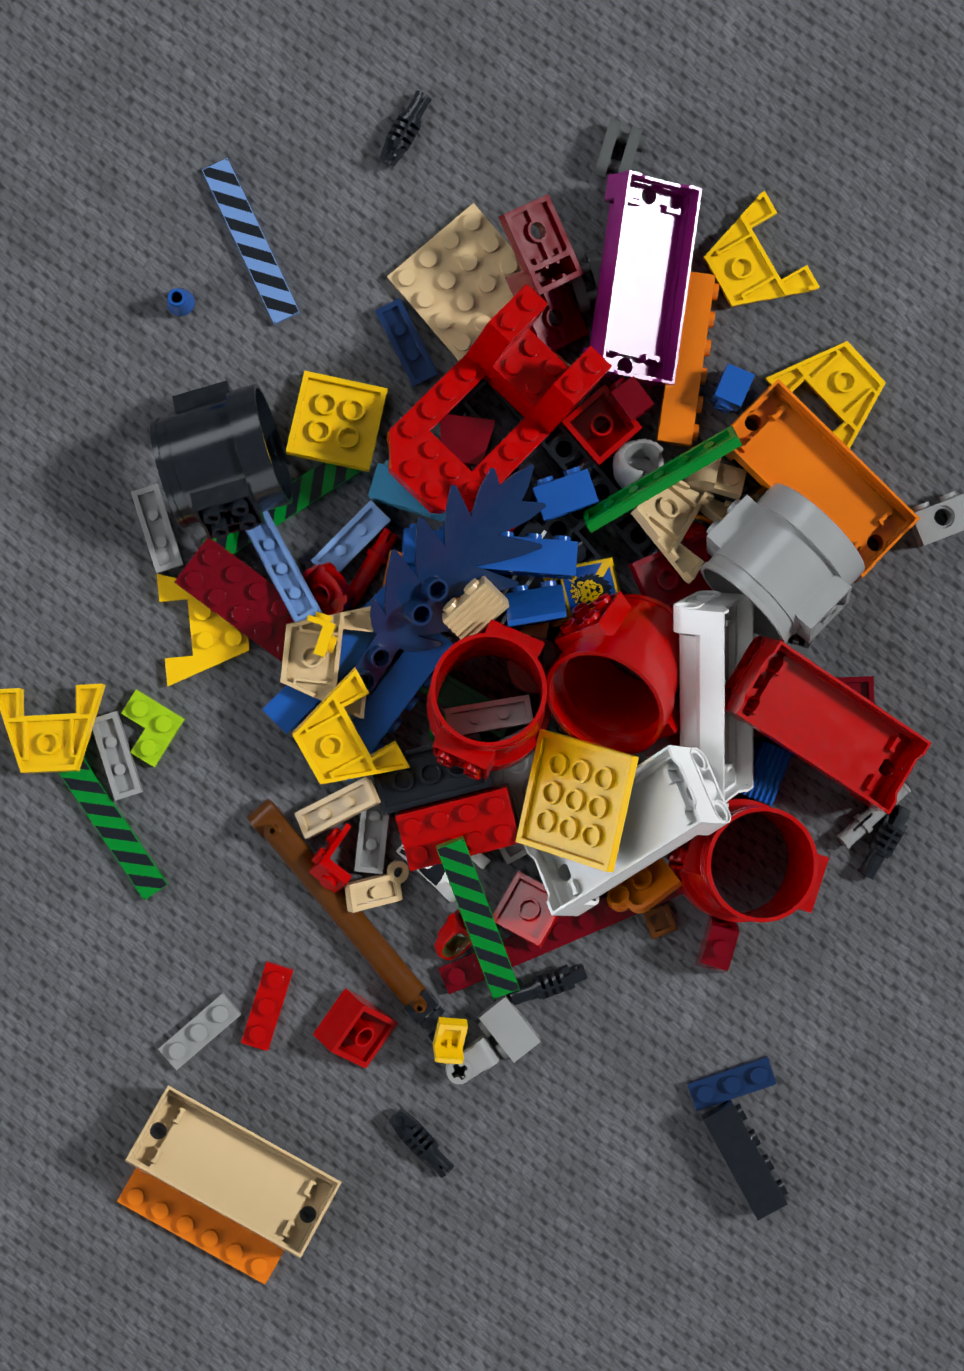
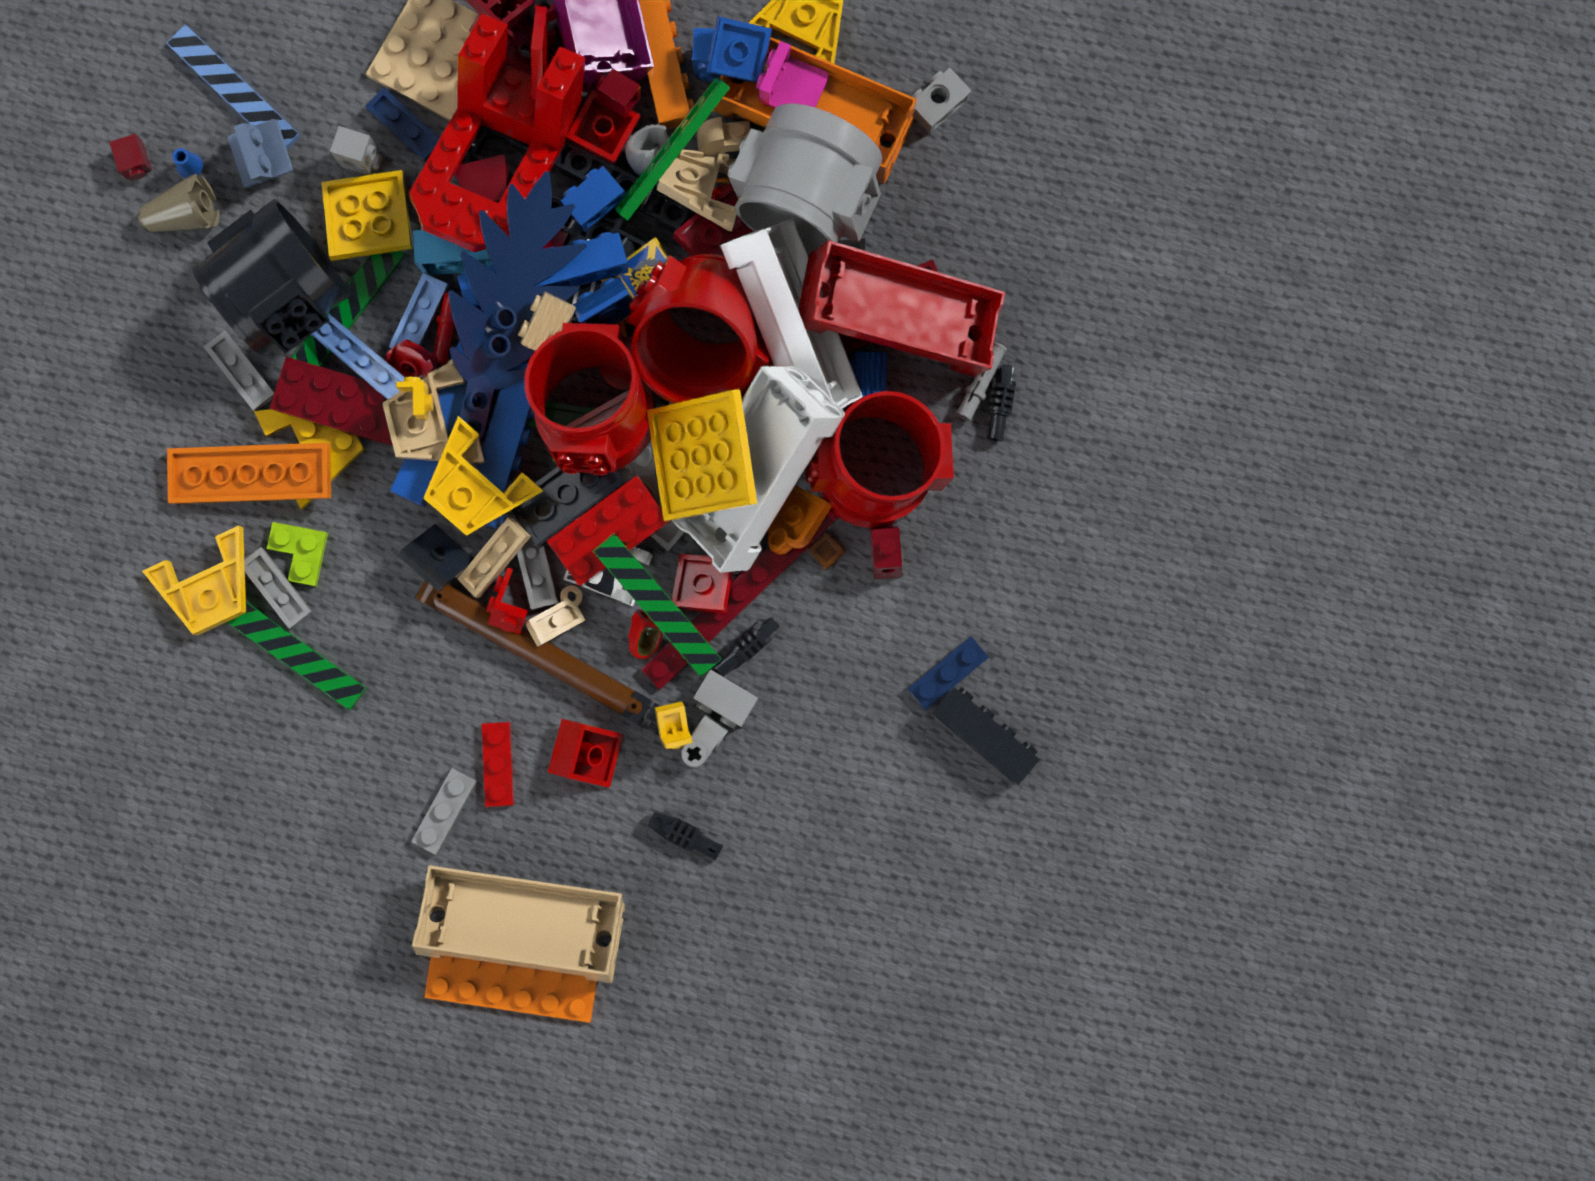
camera: 15 degrees left, 5 degrees down
(126, 274) = (130, 157): none -> dark red brick
(130, 635) = (249, 473): none -> orange plate
(158, 345) = (181, 207): none -> dark tan cone
(254, 318) = (259, 152): none -> sand blue bracket
(282, 787) = (436, 557): none -> black plate
(350, 355) = (356, 151): none -> light grey brick
(576, 313) = (541, 42): none -> red tile
(764, 404) = (738, 49): none -> blue plate
(803, 455) = (790, 80): none -> dark pink bracket

